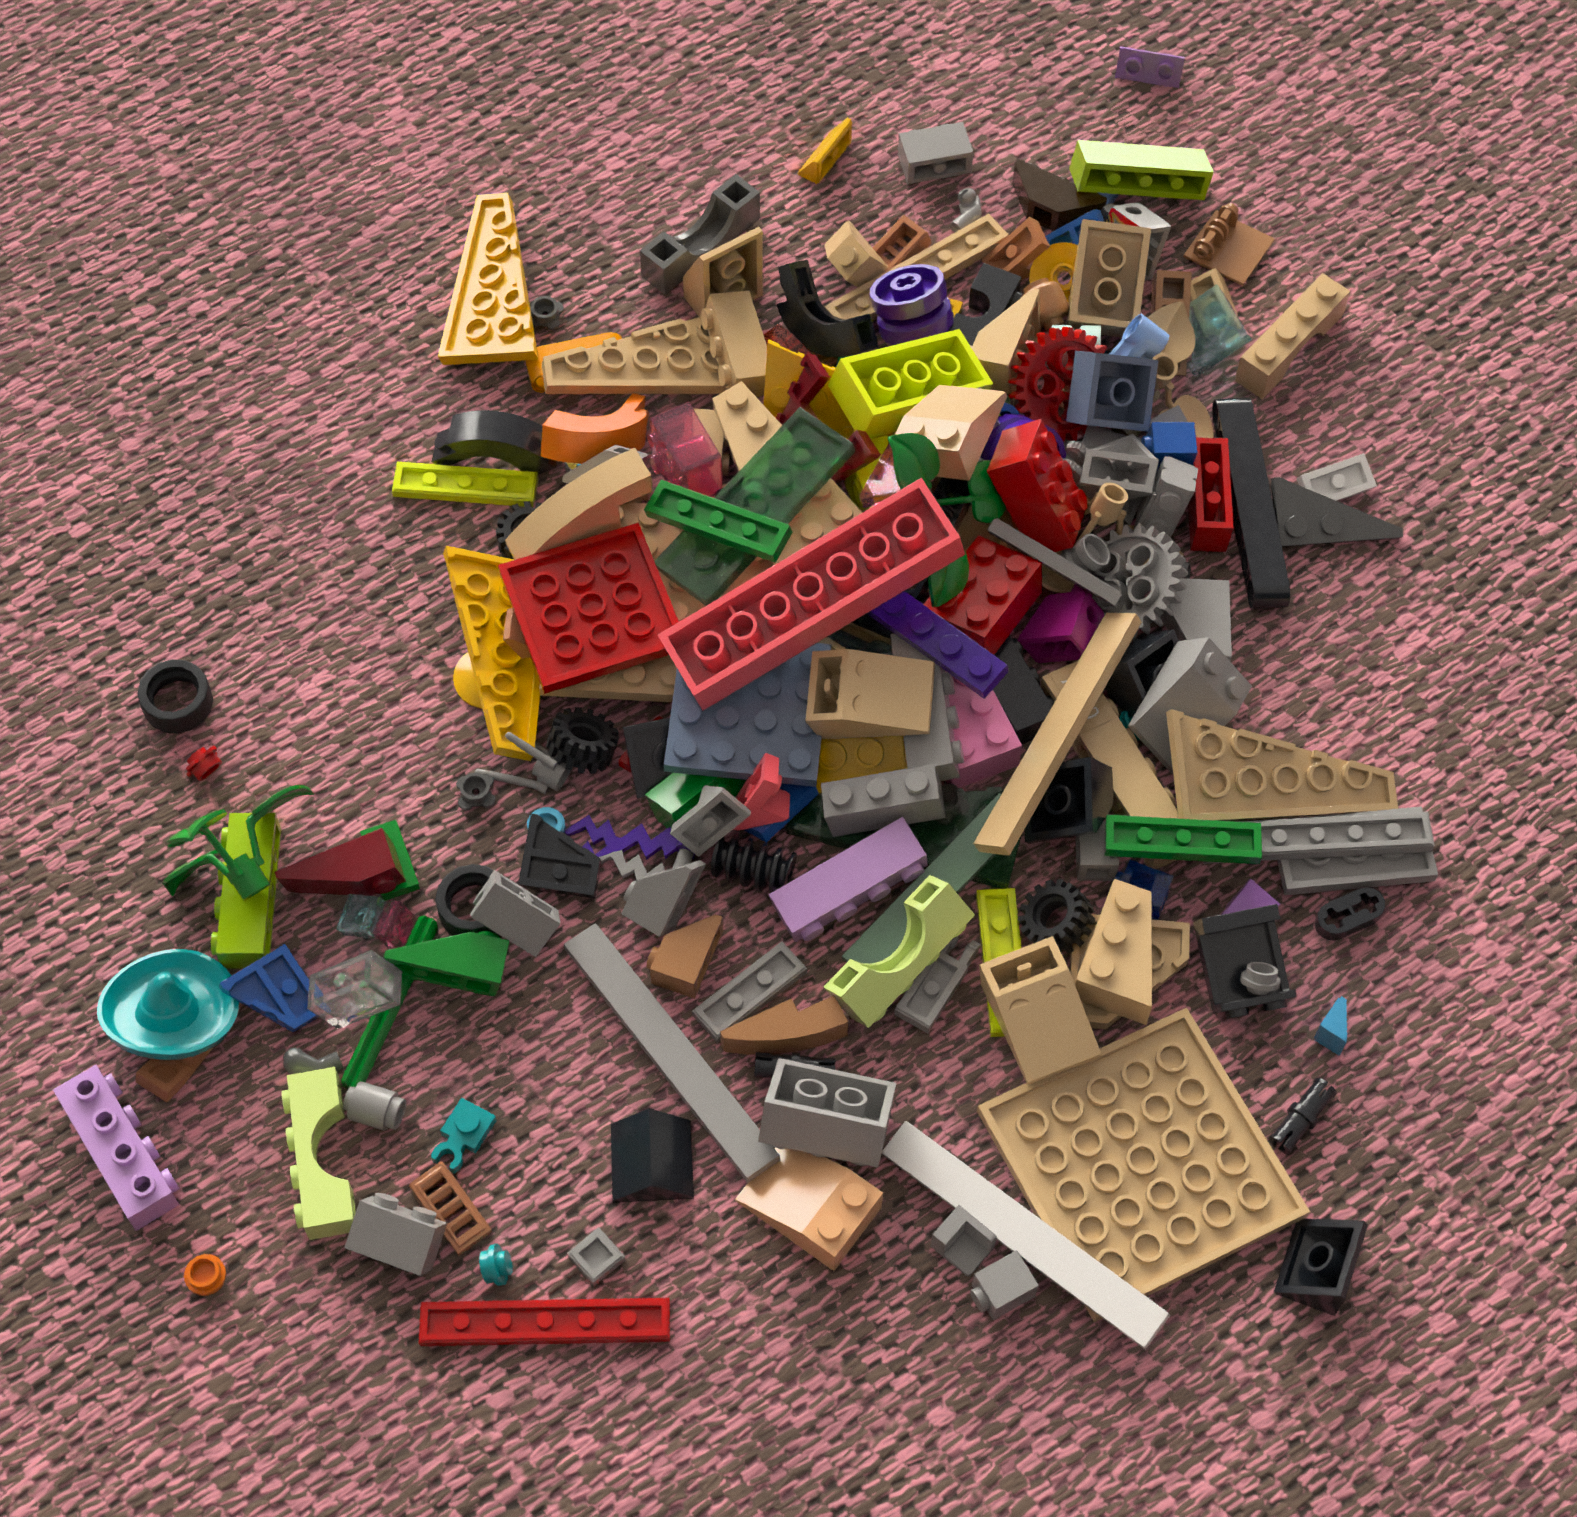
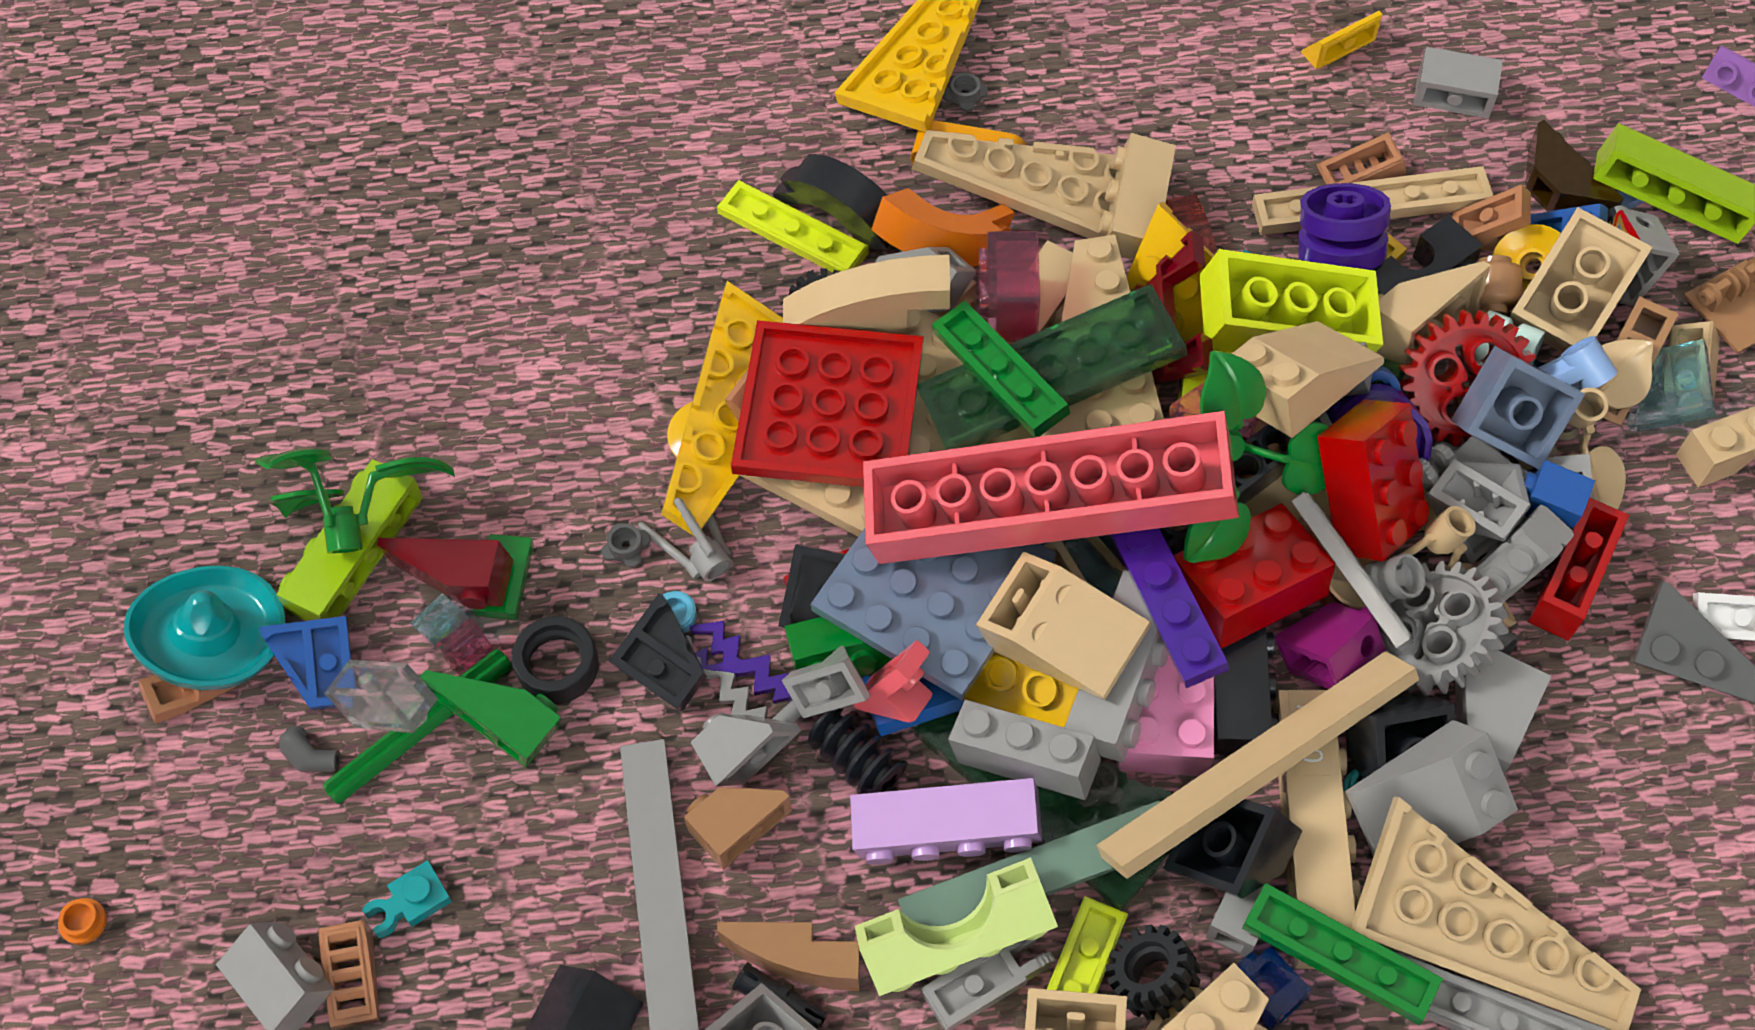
camera: 30 degrees right, 0 degrees up
(116, 1147) = (78, 748): lavender brick -> none
(180, 720) = (401, 346): black tyre -> none
(203, 763) = (384, 398): red plate -> none
(315, 1106) = (279, 797): yellowish green arch -> none
(374, 1106) = (337, 827): light grey brick -> none
(515, 913) = (583, 691): light grey hinge -> none
(582, 740) = (744, 553): black tyre -> none
(726, 269) = (1167, 114): tan slope -> none
(727, 215) = (1203, 62): dark grey arch -> none
(750, 990) = (783, 890): light grey tile -> none
(813, 324) = (1230, 204): black arch -> none
(853, 256) = (1312, 155): tan slope -> none
(969, 209) = (1466, 154): light grey arm -> none
(1252, 505) = (1624, 602): black beam -> none

